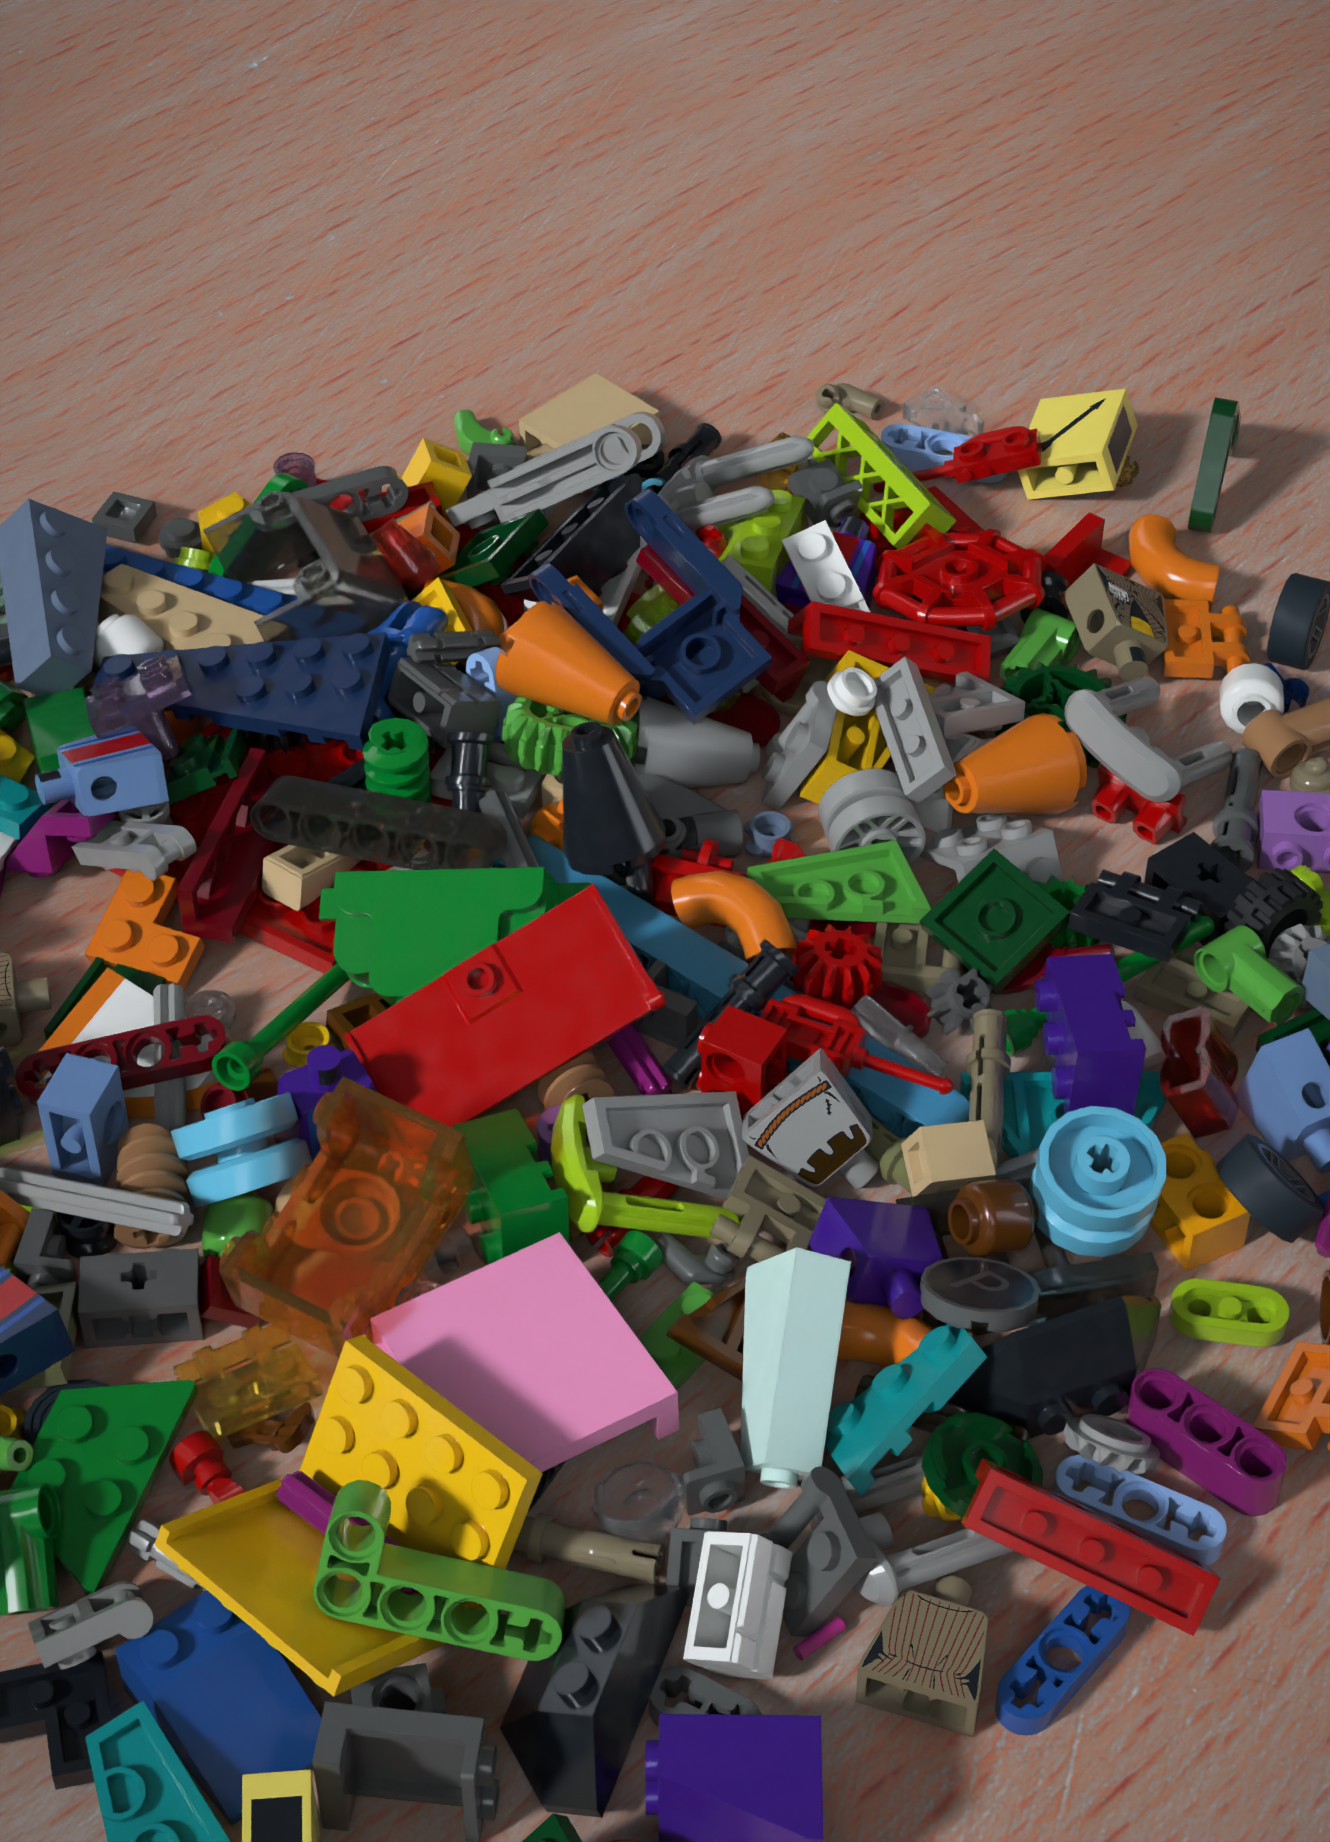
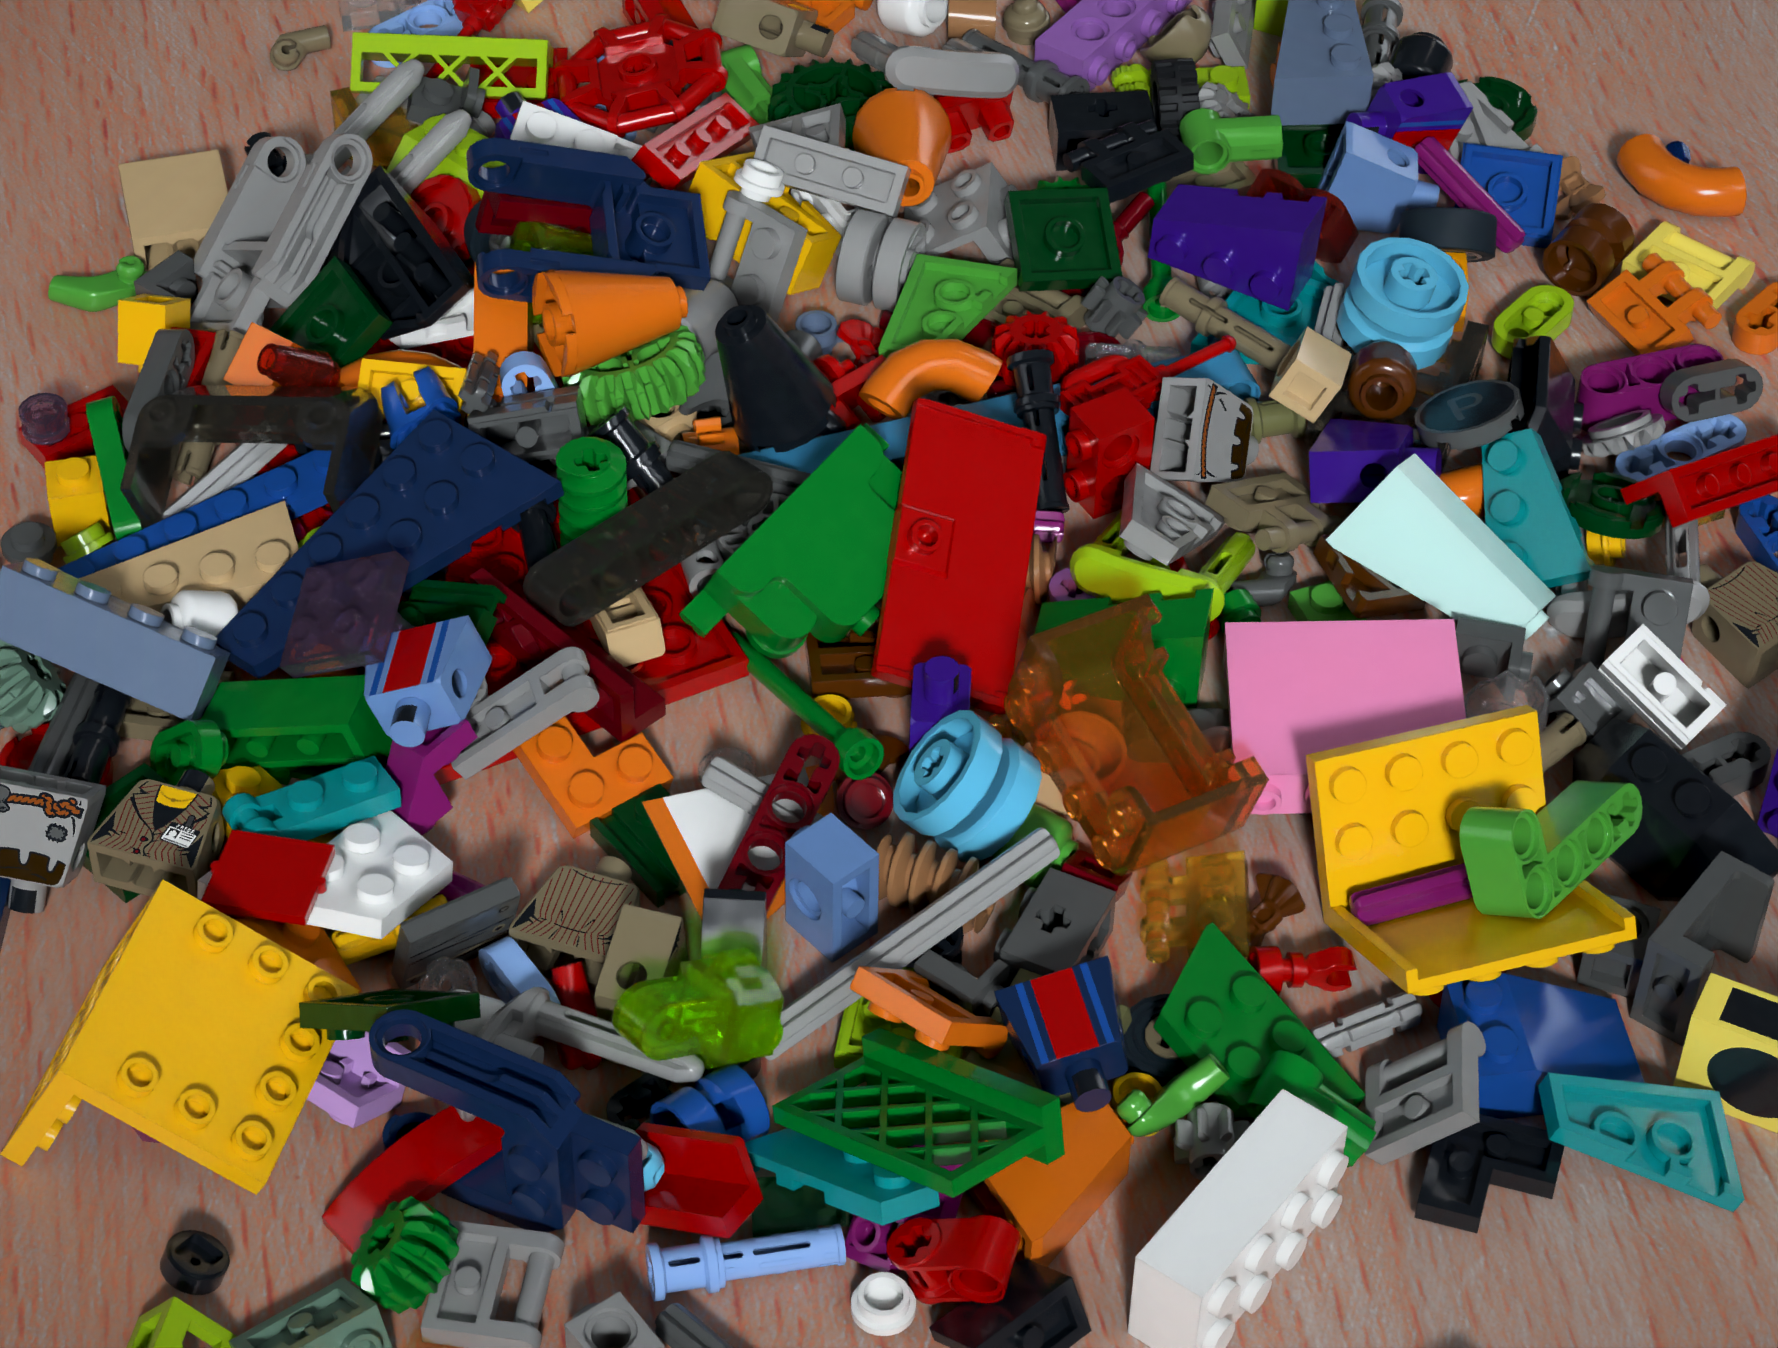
camera: 60 degrees left, 0 degrees up
(1224, 1486) = (1709, 381): none -> dark grey beam

